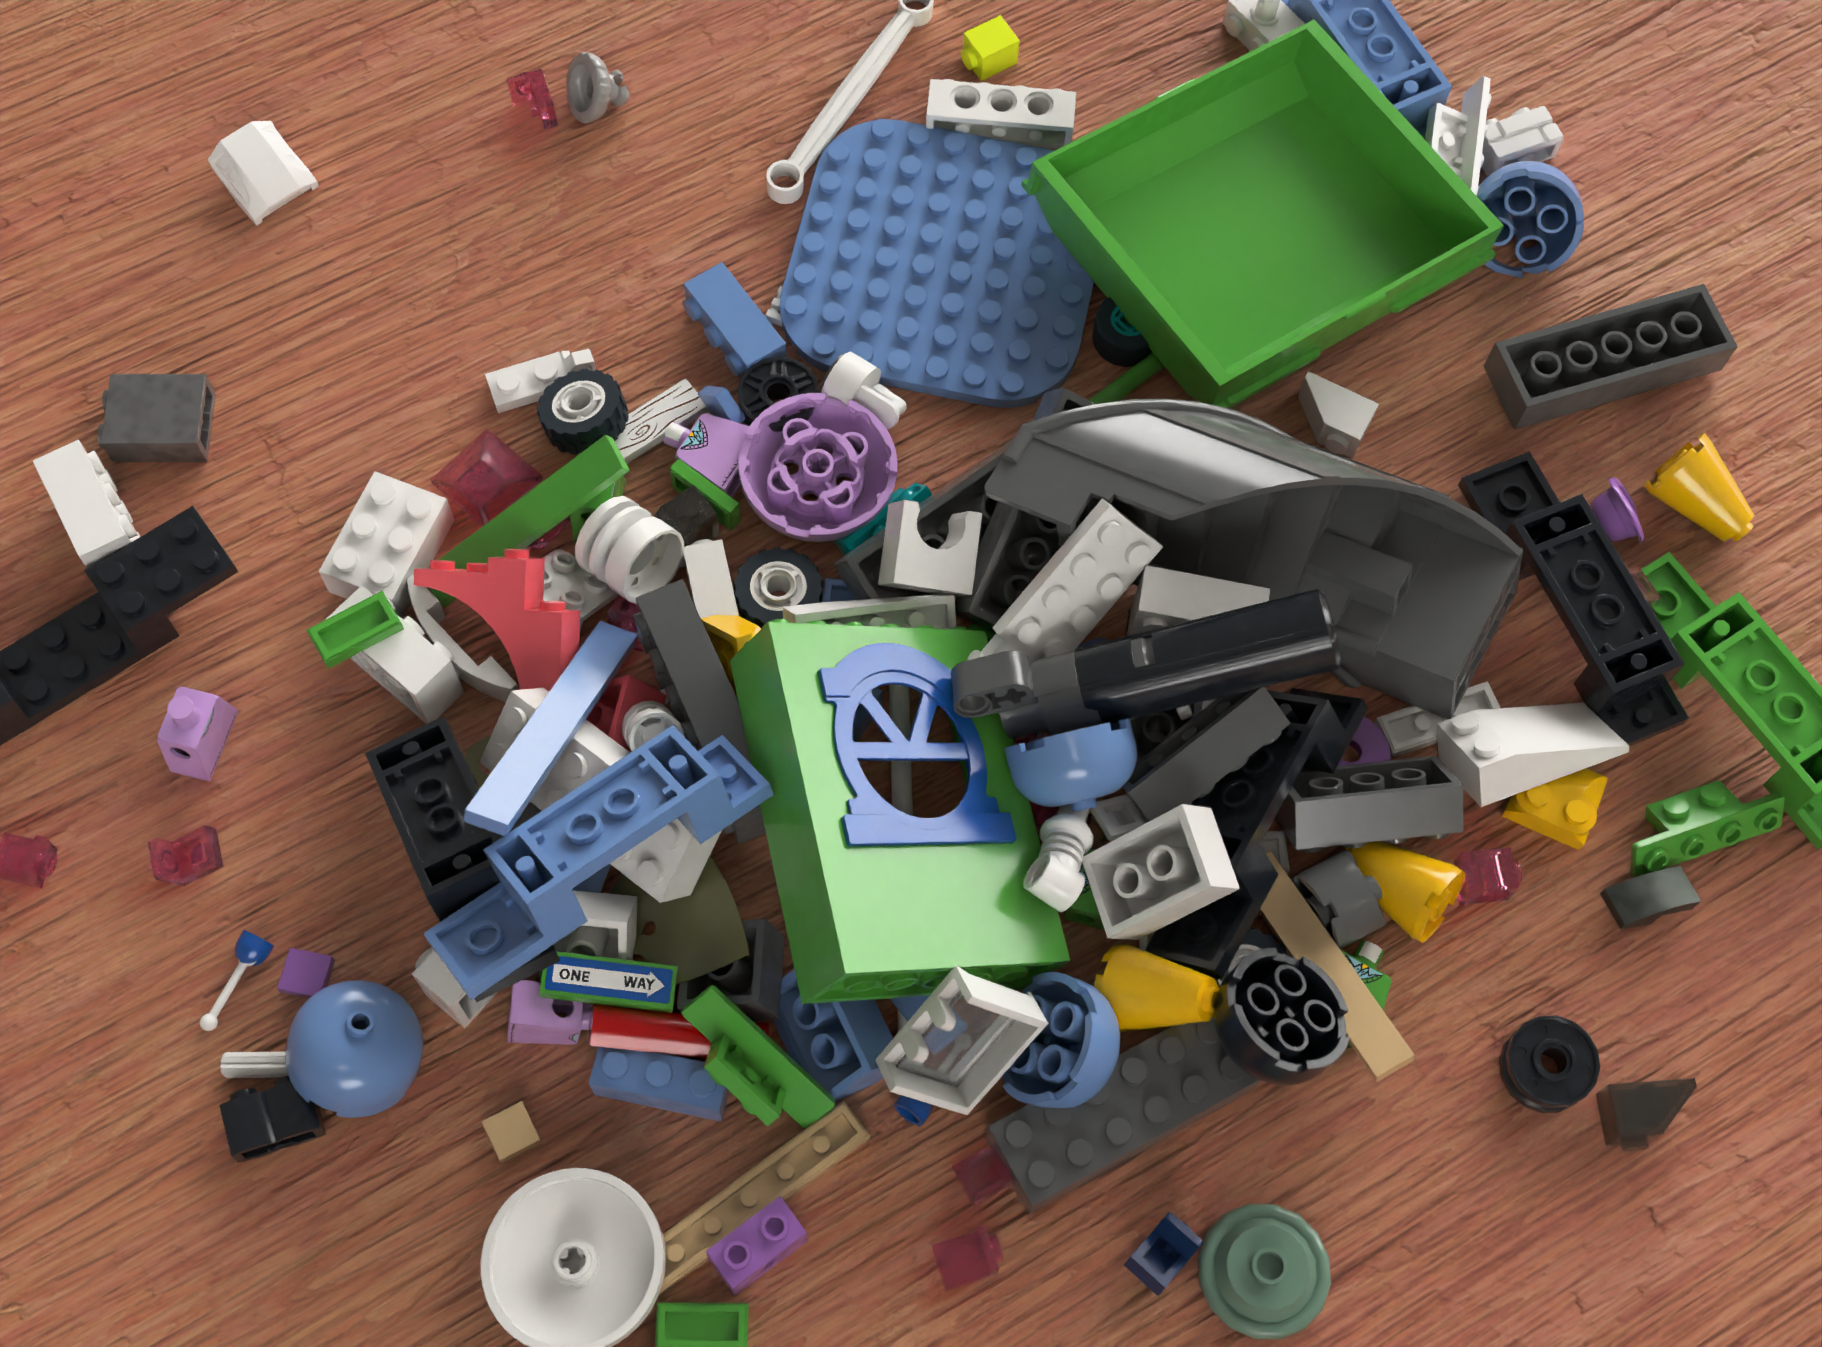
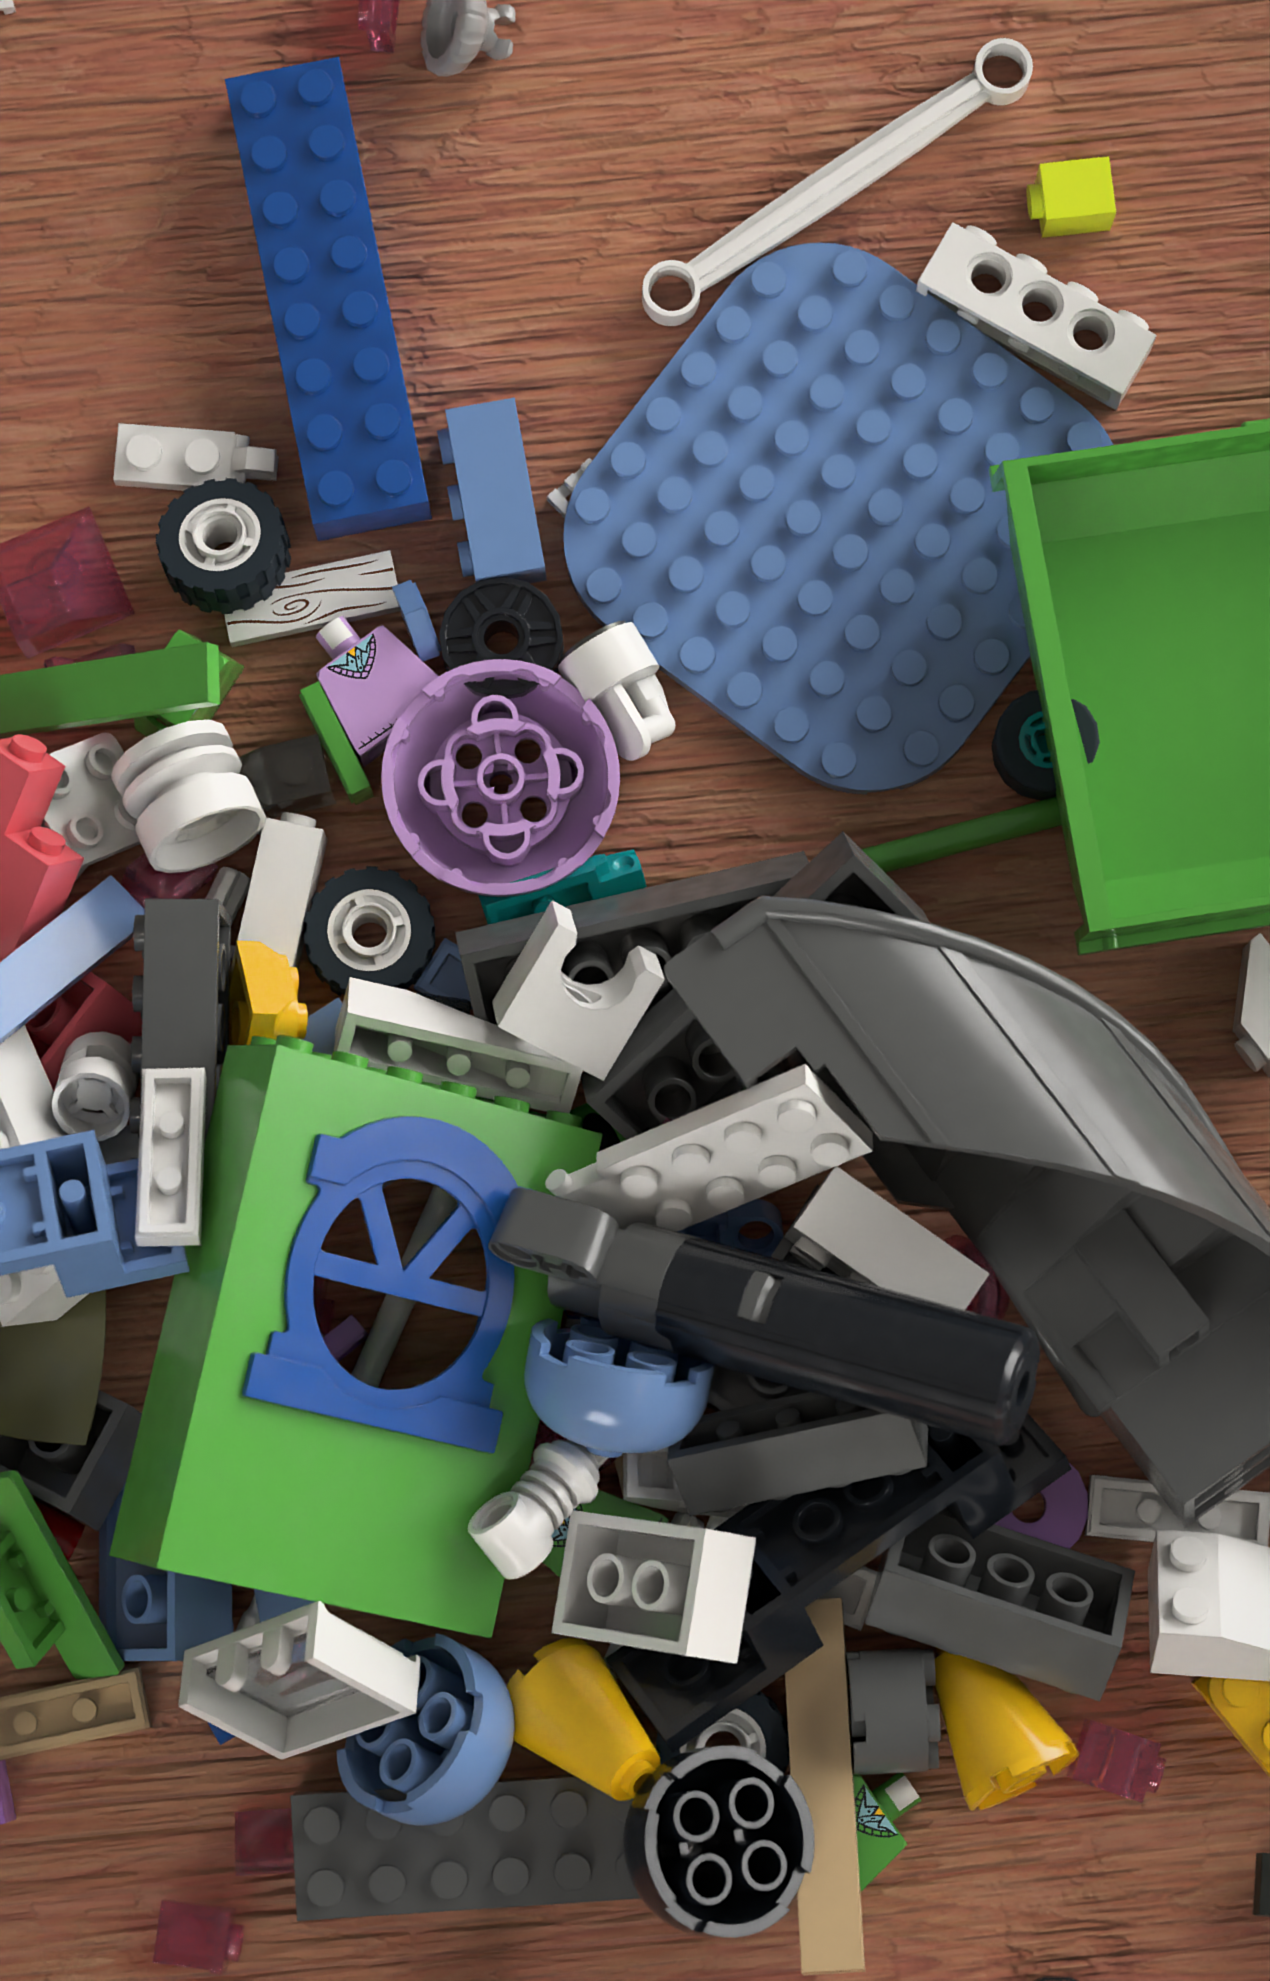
camera: 30 degrees right, 15 degrees up
(584, 259) = (328, 299): none -> blue brick
(728, 733) = (171, 1157): none -> white tile

